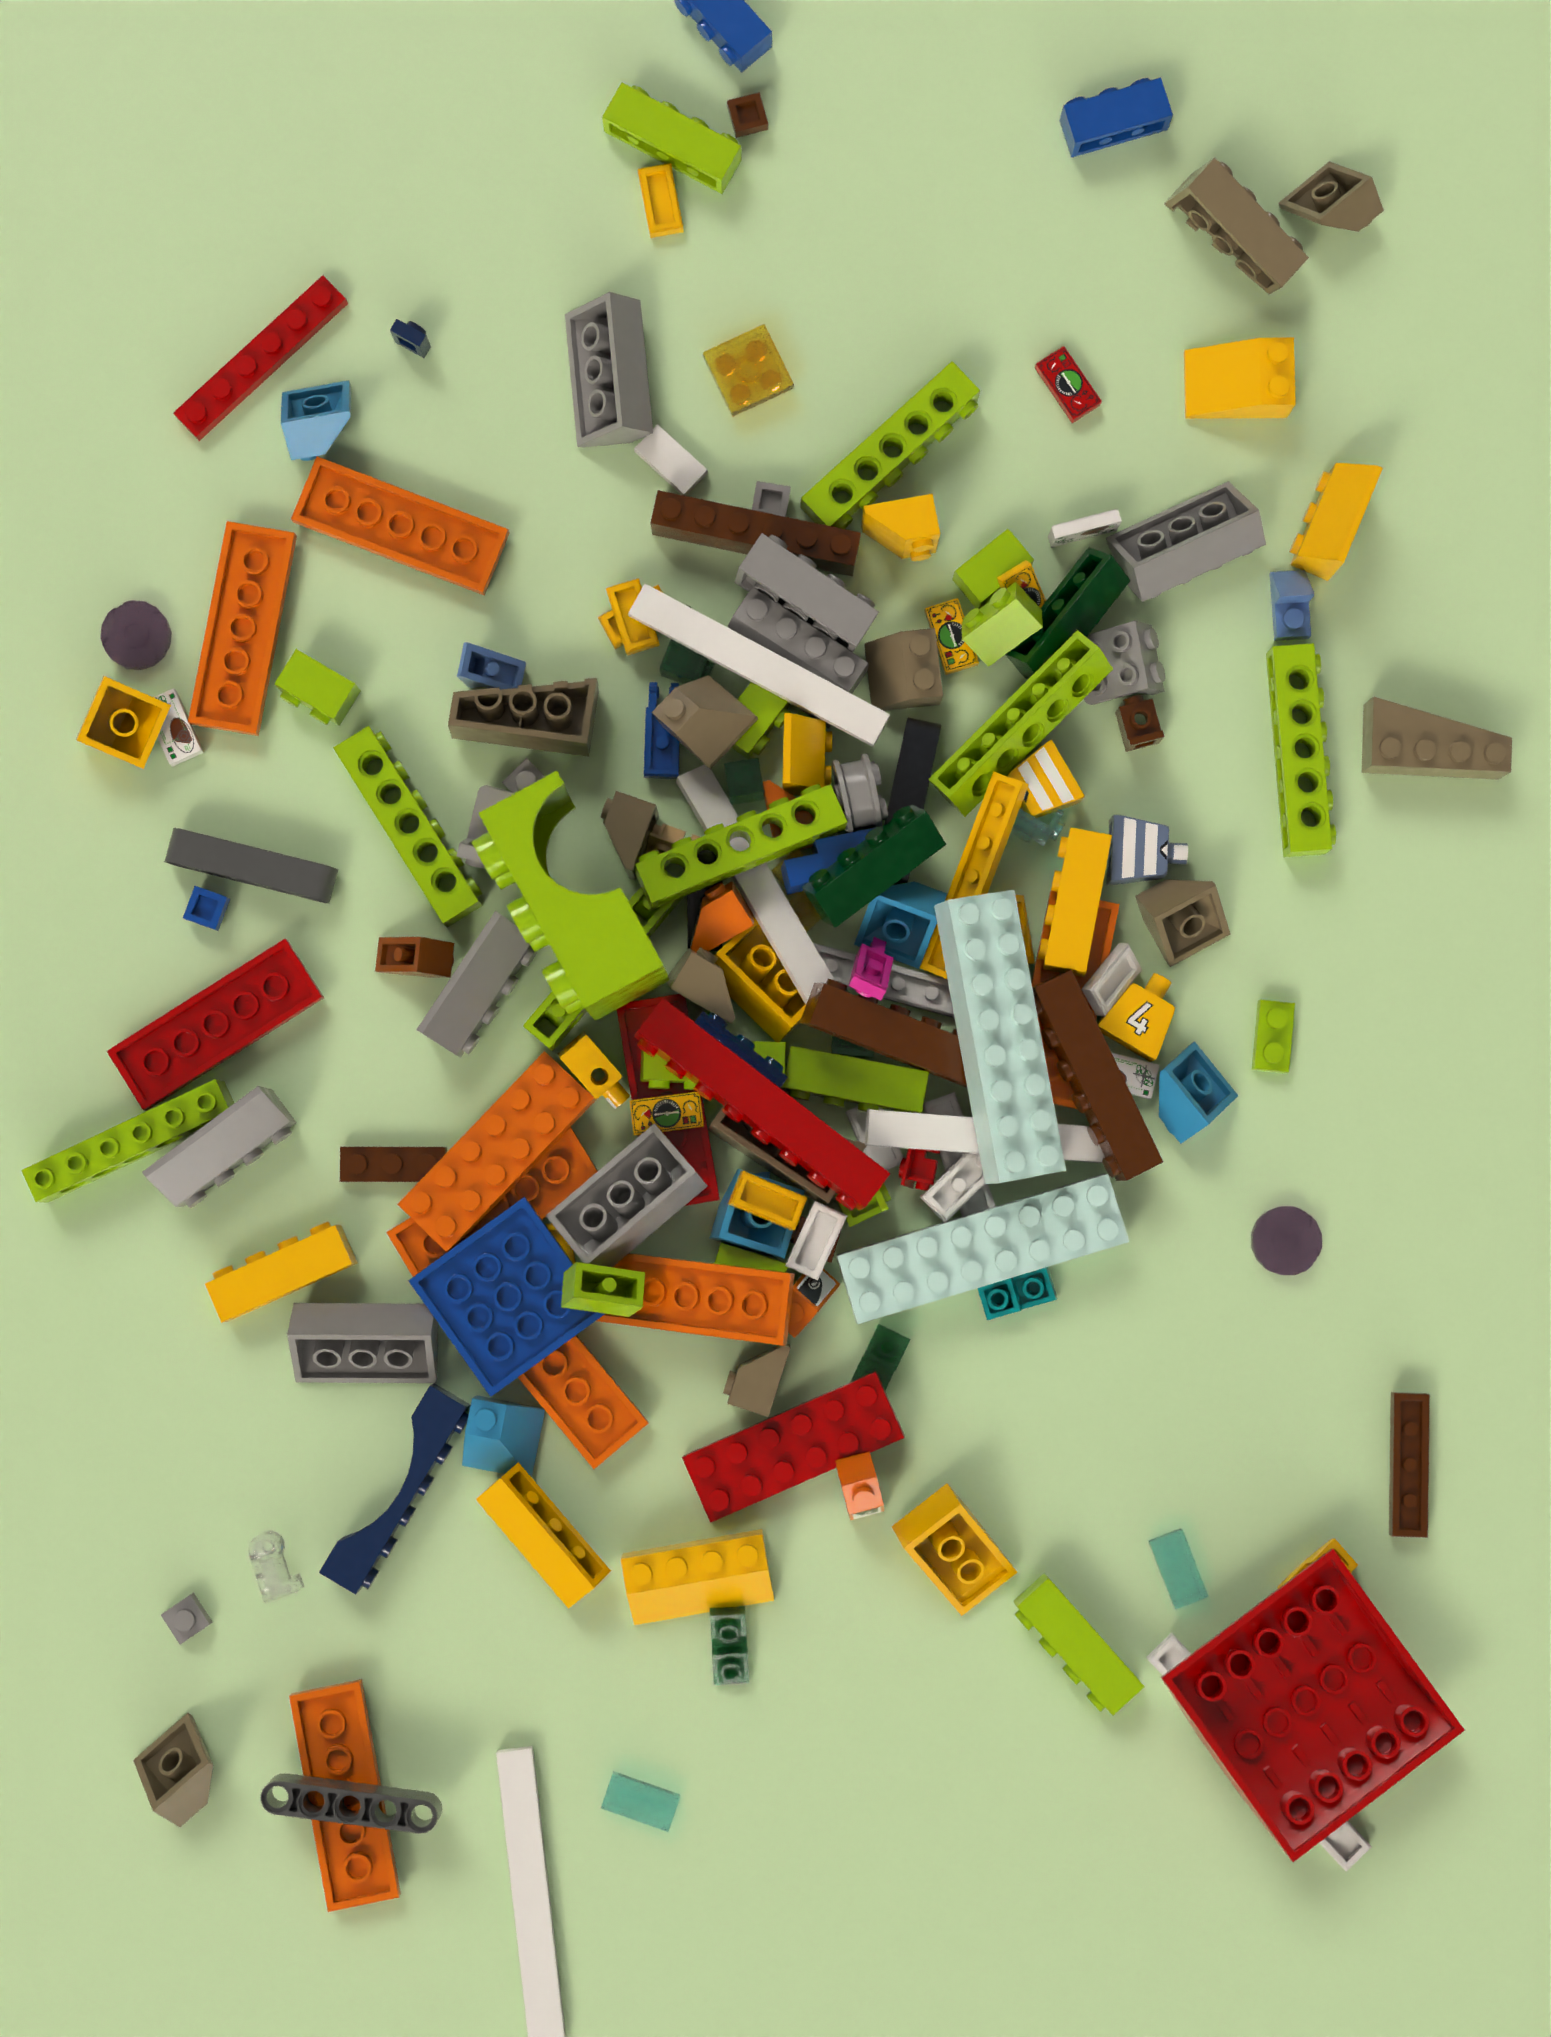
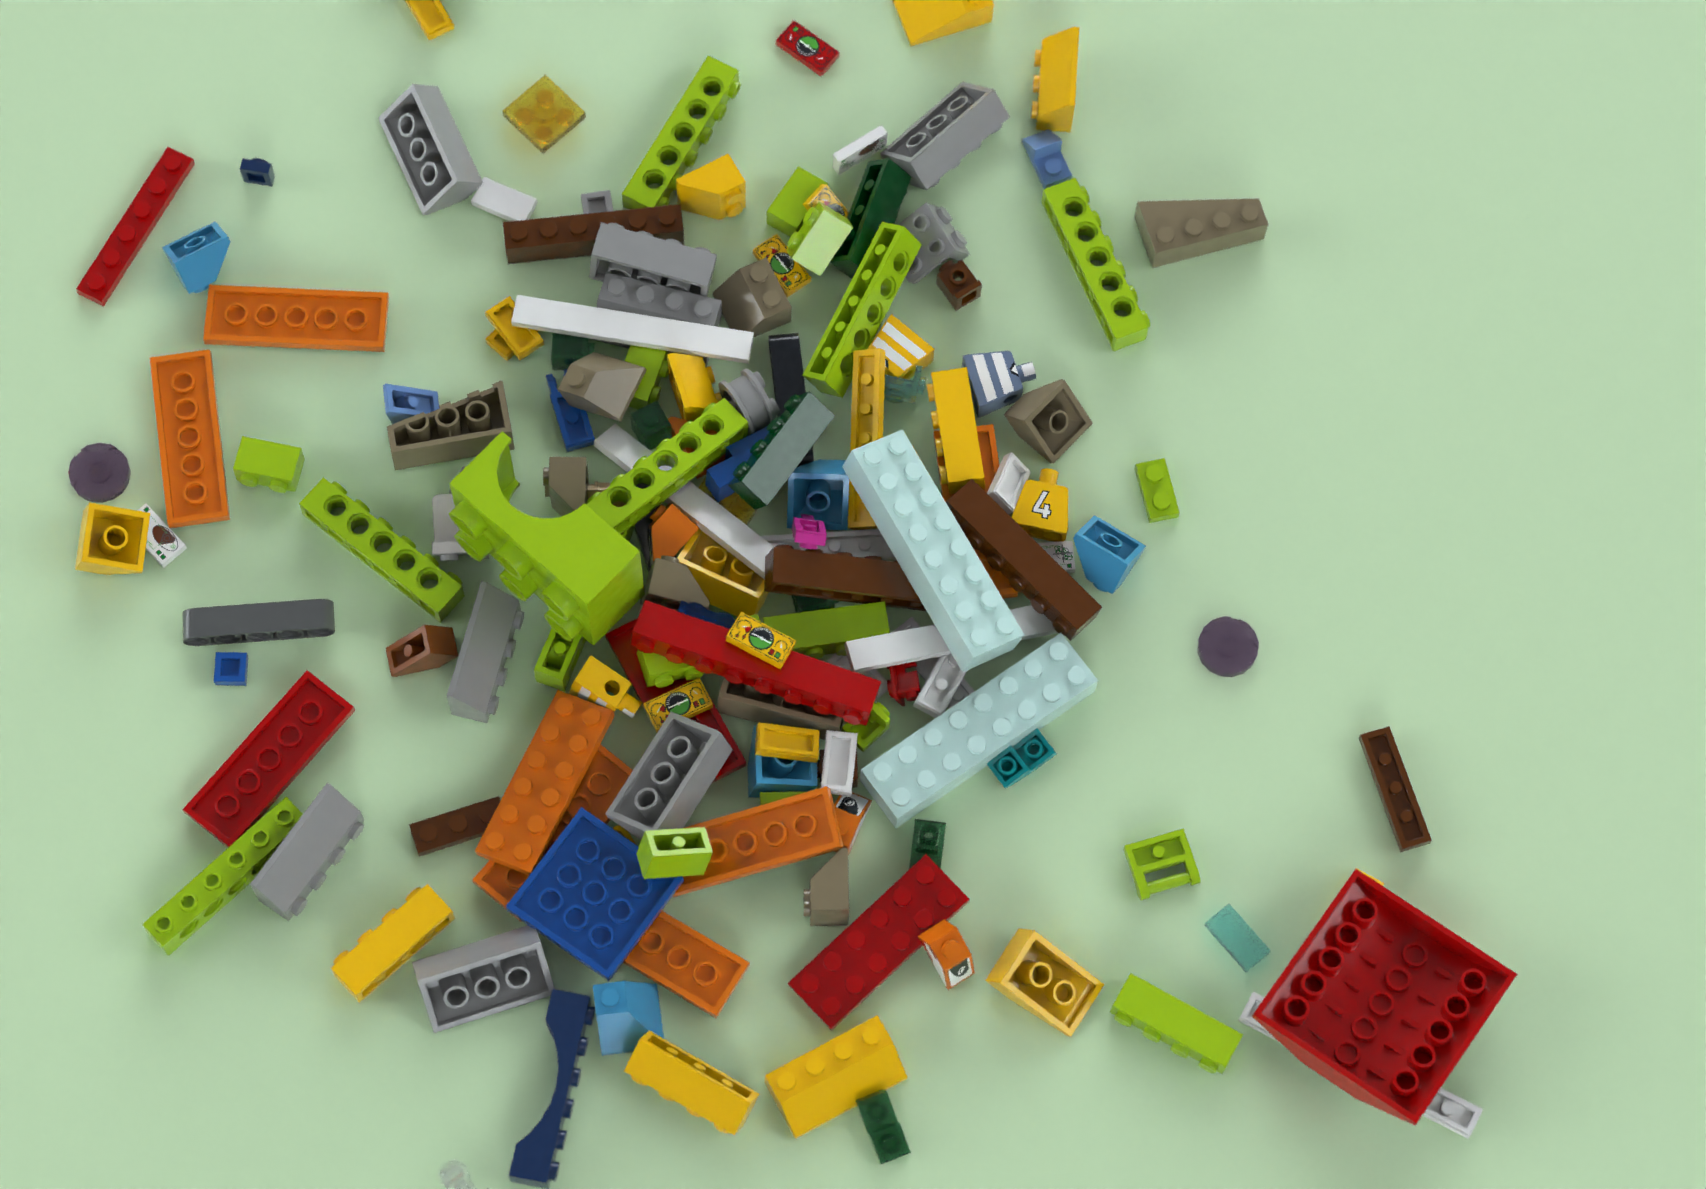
camera: 20 degrees left, 15 degrees down
(773, 1087) = (760, 640): none -> yellow tile
(1130, 1450) = (1158, 854): none -> lime plate

